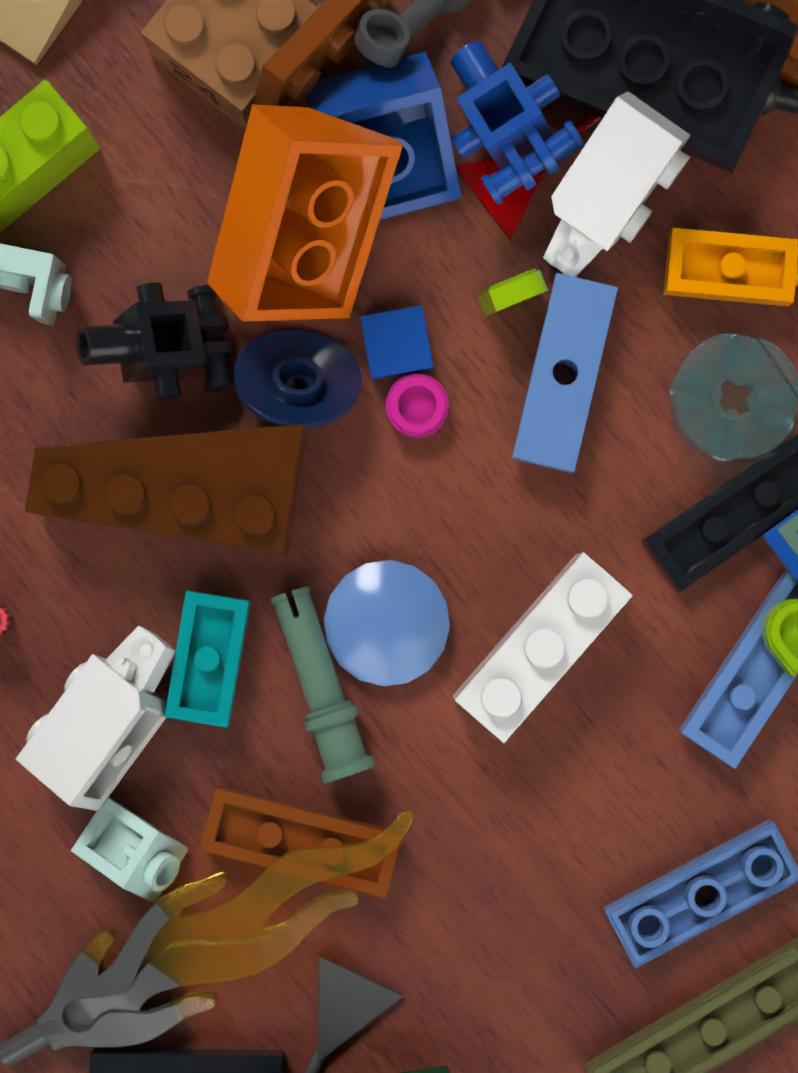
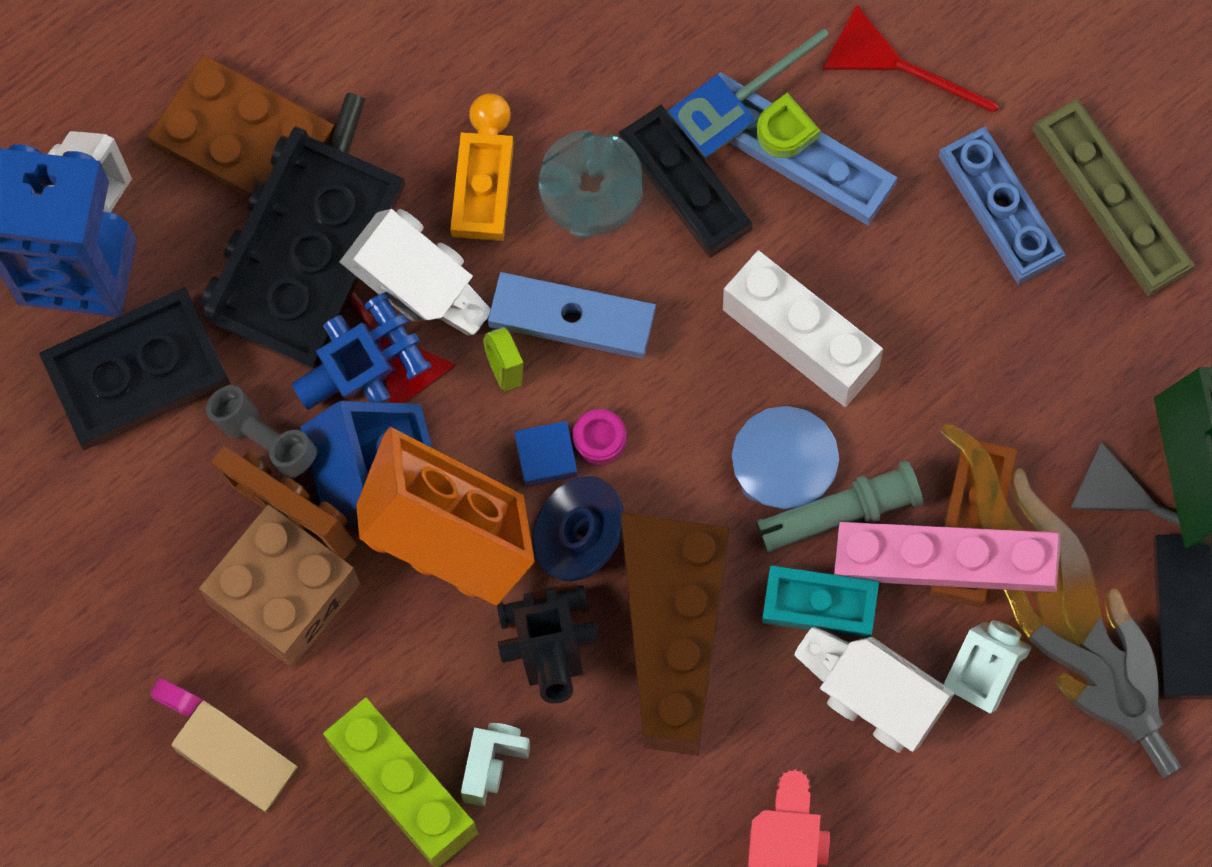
camera: 90 degrees left, 15 degrees down
(249, 811) = (949, 556): none -> bright pink plate

